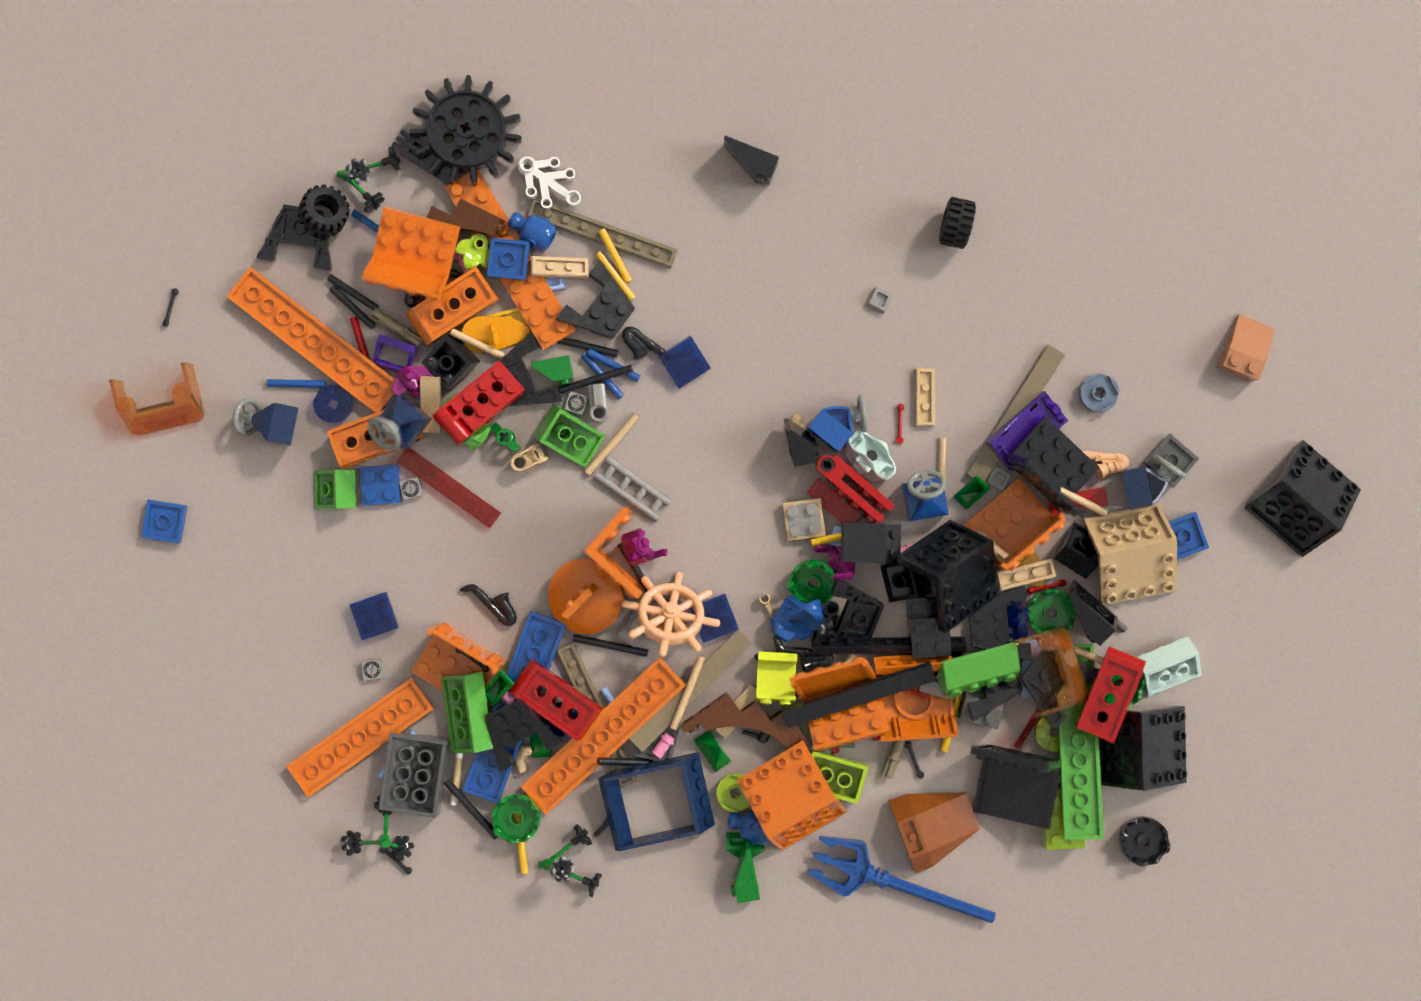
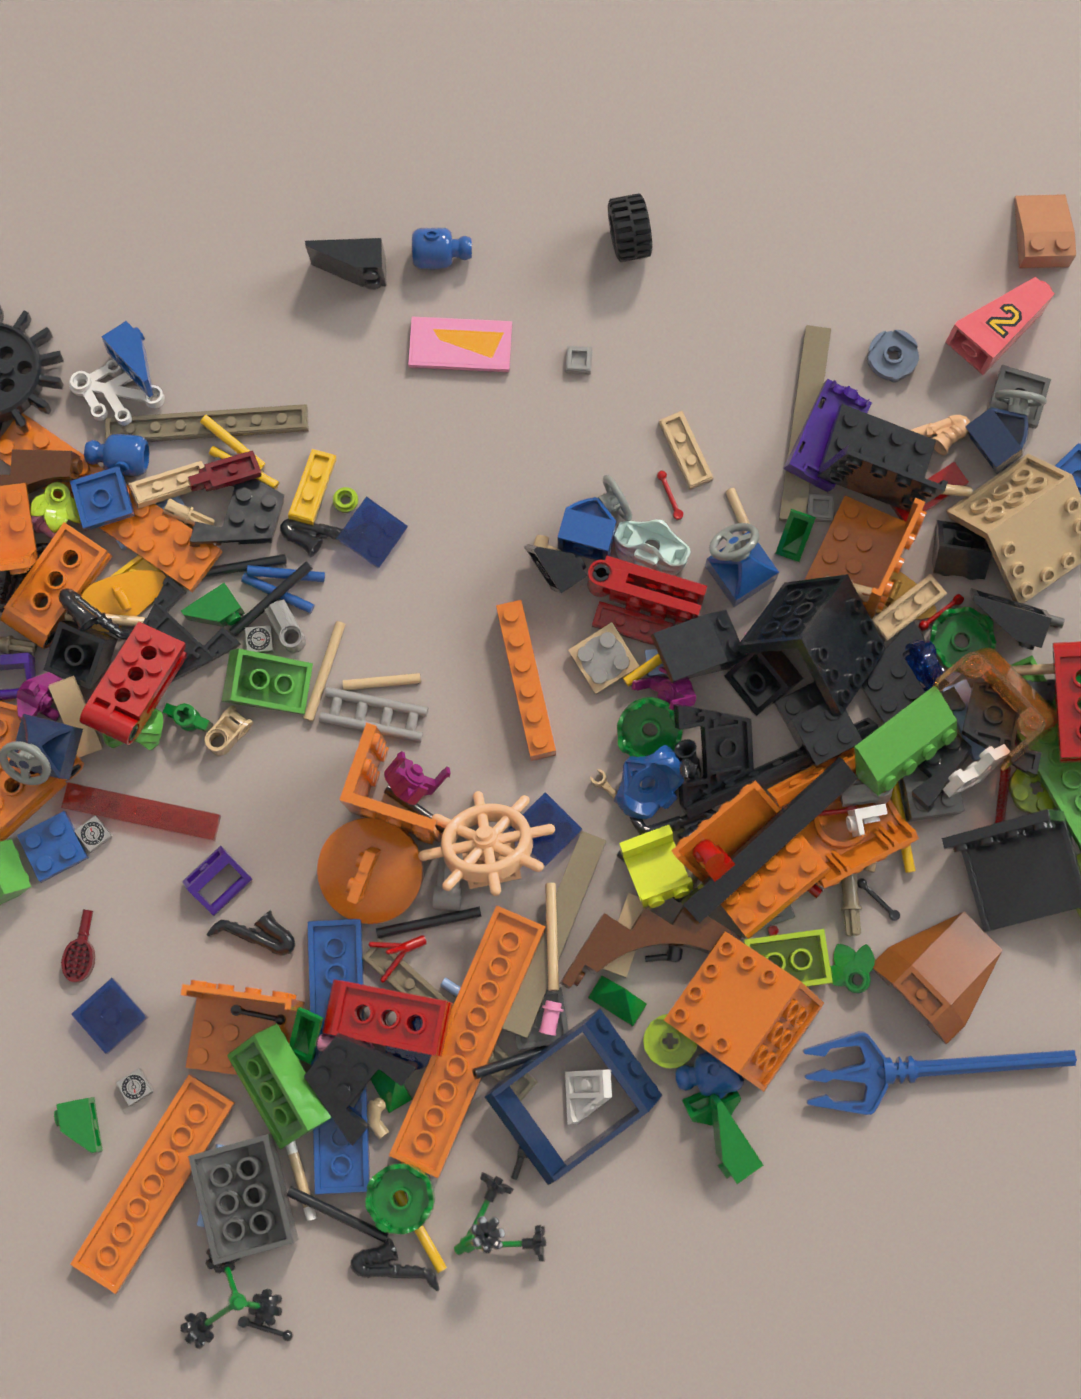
camera: 20 degrees left, 10 degrees down
(327, 678) = (80, 1123): none -> green slope
(370, 566) = (79, 954): none -> dark red piece
(465, 339) = (86, 615): none -> black piece
(478, 548) = (210, 868): none -> dark purple tile
(484, 849) = (375, 1263): none -> black piece
(562, 294) = (185, 513): none -> tan axle
(569, 157) = (128, 351): none -> blue slope
(584, 657) = (403, 948): none -> red plant
(601, 277) = (226, 472): none -> dark red hinge
(647, 468) = (383, 681): none -> tan piece
(656, 311) = (312, 487): none -> yellow tile
(666, 802) = (586, 1092): none -> white wing
(680, 325) = (345, 492): none -> lime plate
(745, 511) = (526, 680): none -> orange brick
(802, 252) = (460, 344): none -> bright pink tile
(815, 693) = (712, 859): none -> red leg
(816, 175) = (435, 248): none -> blue piece
(876, 794) = (852, 963): none -> green plate
(932, 704) = (868, 814): none -> white bracket
(1016, 708) = (976, 771): none -> white plate
(1179, 407) = (996, 326): none -> coral slope

